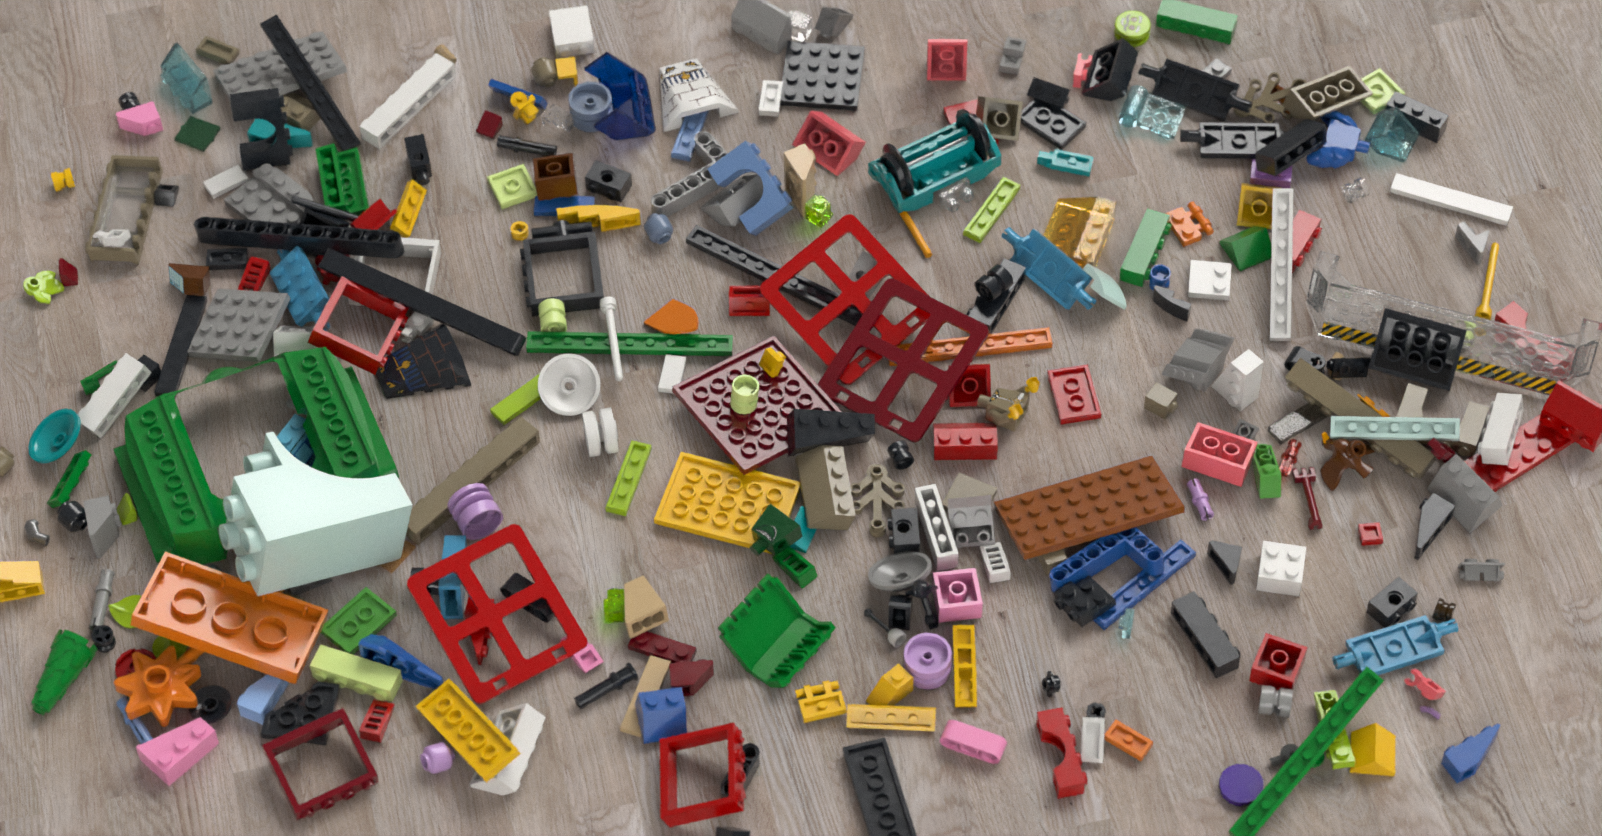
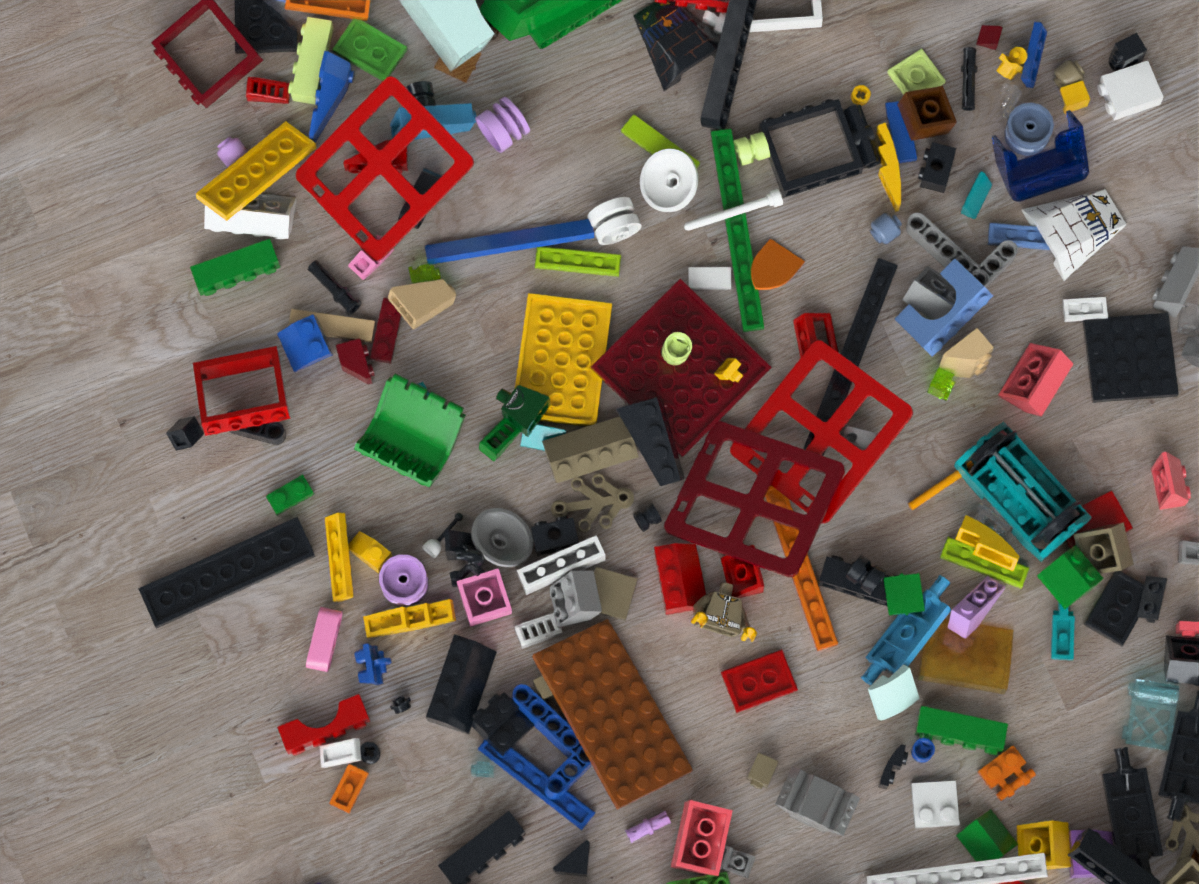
camera: 80 degrees right, 20 degrees up
(482, 468) = (546, 114): dark tan brick -> none
(539, 23) = (1127, 53): none -> black brick
(563, 771) = (235, 267): none -> green brick
(595, 530) = (509, 241): none -> blue tile
(641, 160) = (976, 196): none -> teal slope
(816, 756) = (289, 495): none -> green plate
(820, 706) = (343, 491): yellow plate -> none
(977, 198) = (987, 543): none -> yellow slope
(996, 703) = (375, 664): none -> blue hips
(1017, 261) = (904, 594): none -> green piece
(1020, 142) = (1070, 577): none -> green slope
(1034, 217) = (974, 607): none -> lavender slope
(1037, 633) = (461, 684): none -> black slope
(1240, 380) = (793, 846): white wedge -> none

